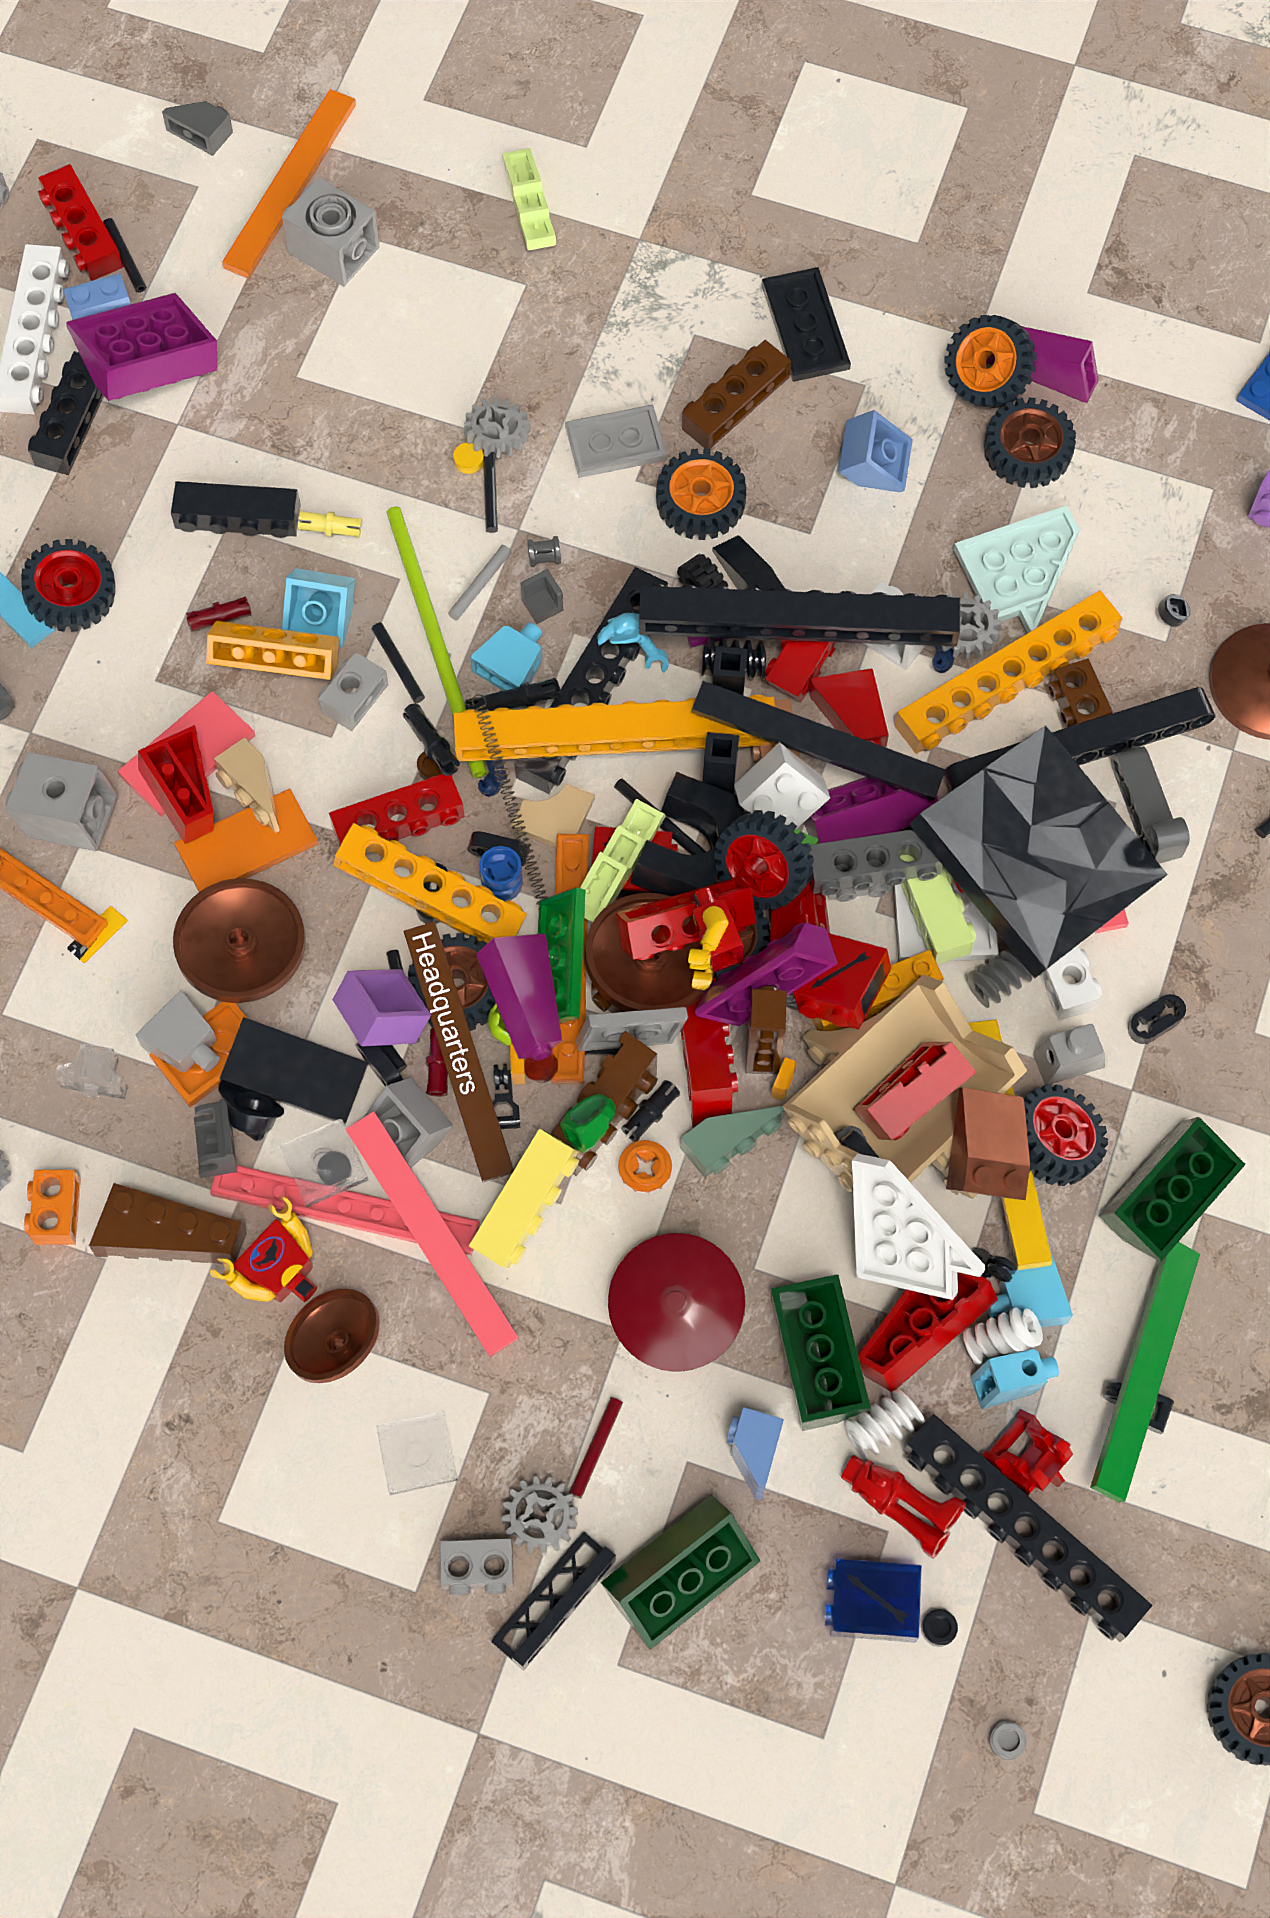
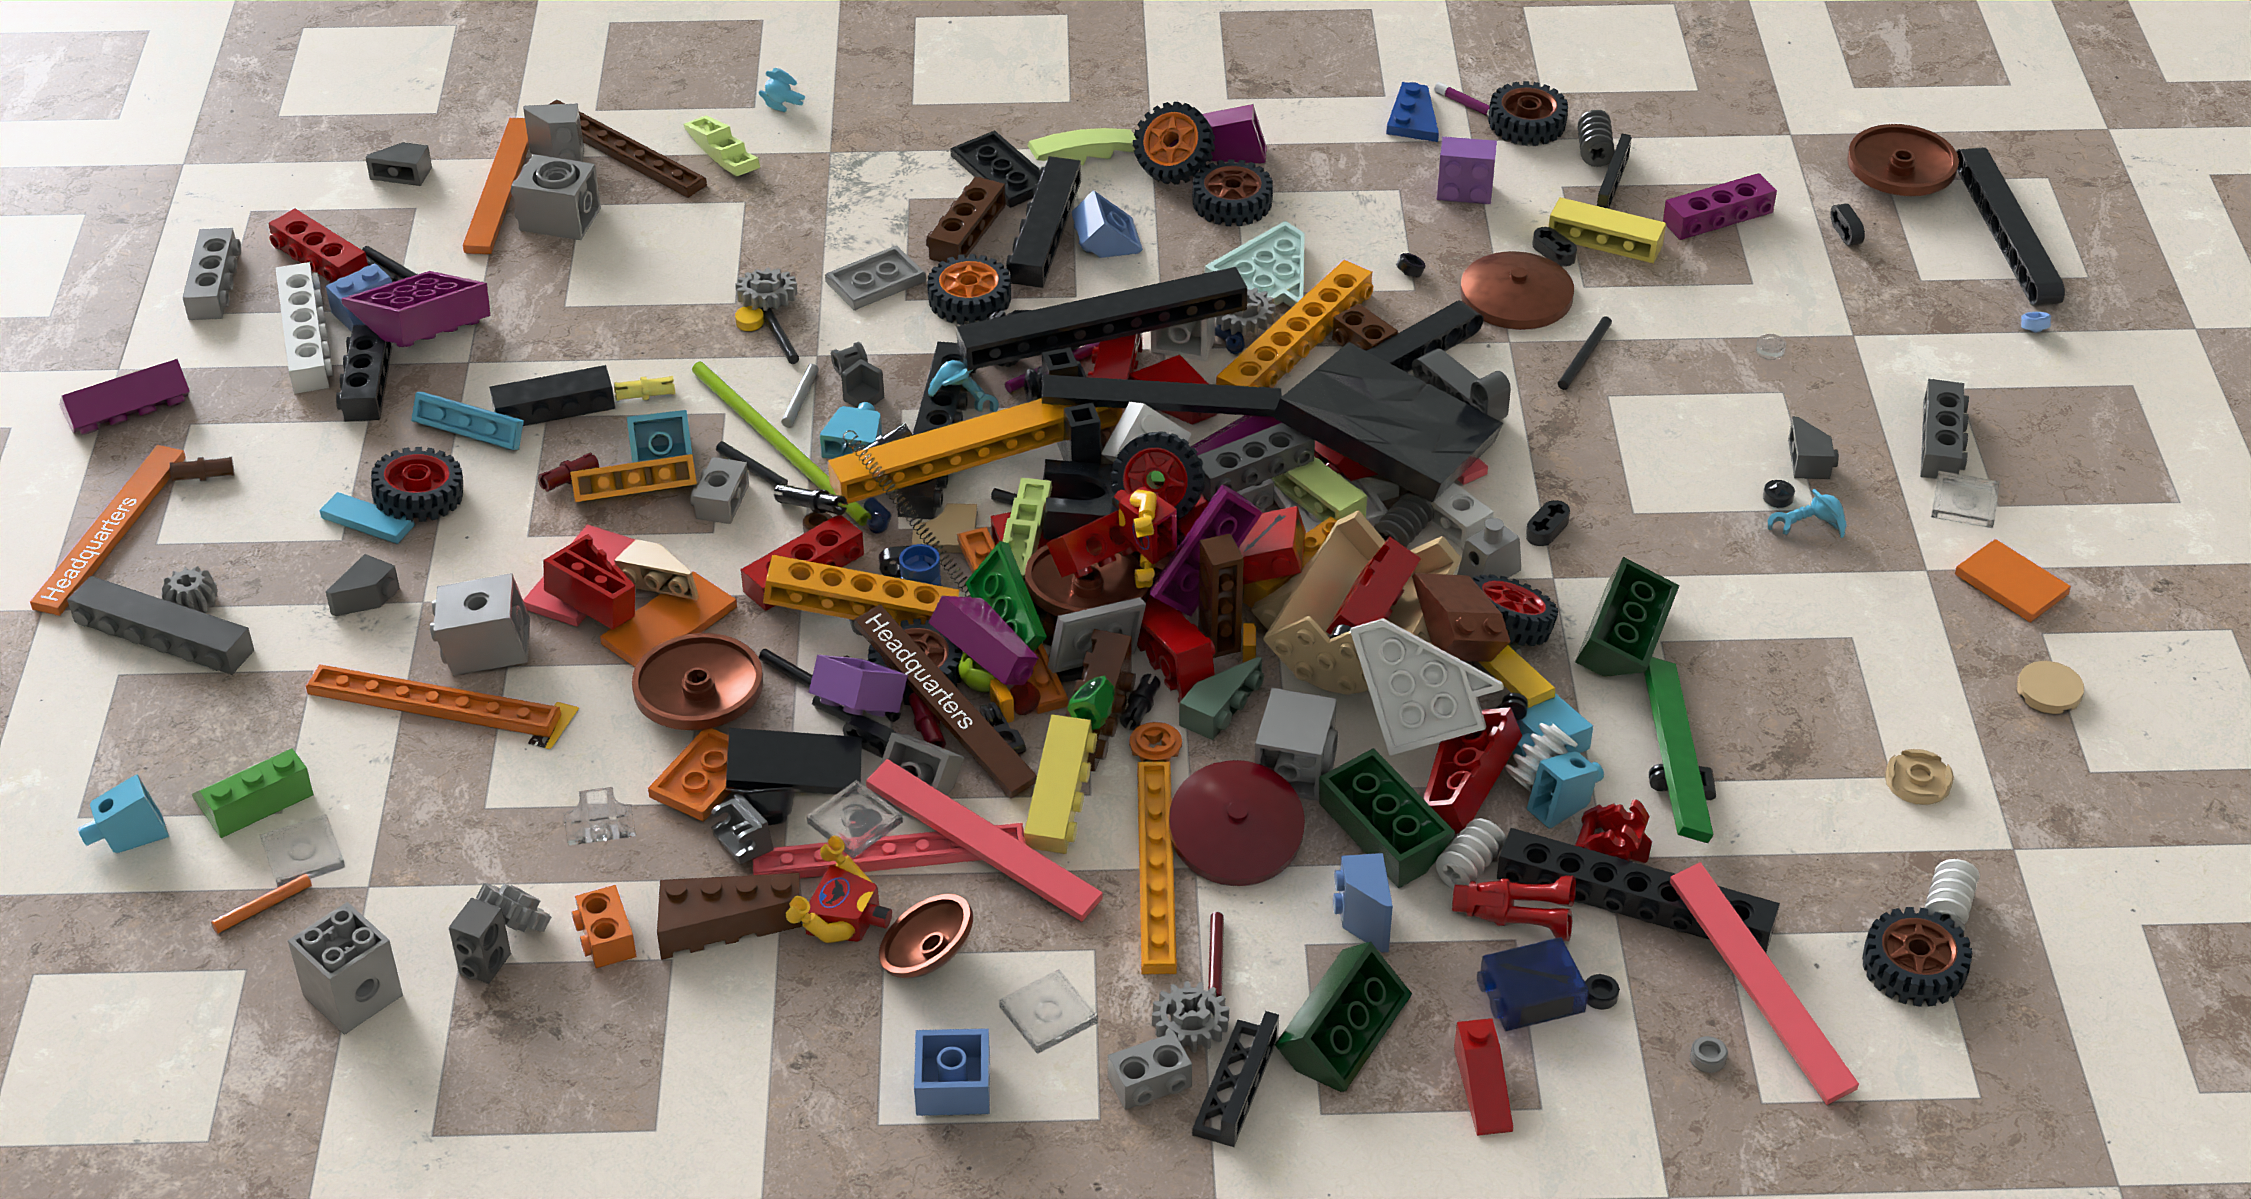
camera: 20 degrees left, 25 degrees down
(144, 513) = (467, 420): none -> medium azure tile
(145, 264) = (388, 263): none -> black piece
(180, 1036) = (674, 758): light grey torso -> none
(295, 1502) = (952, 1072): none -> medium blue brick
(335, 943) = (785, 667): none -> black bar
(363, 138) = (554, 131): none -> light grey slope
(429, 168) = (639, 157): none -> reddish brown tile
(584, 1319) = (1156, 869): none -> light orange tile
(615, 134) = (778, 90): none -> medium azure piece
(772, 1230) = (1298, 739): none -> light grey brick
(779, 1692) = (1483, 1076): none -> red slope
(814, 424) = (1044, 222): none -> black brick
(899, 320) = (1083, 143): none -> yellowish green slope
(1092, 1691) = (1764, 984): none -> coral tile

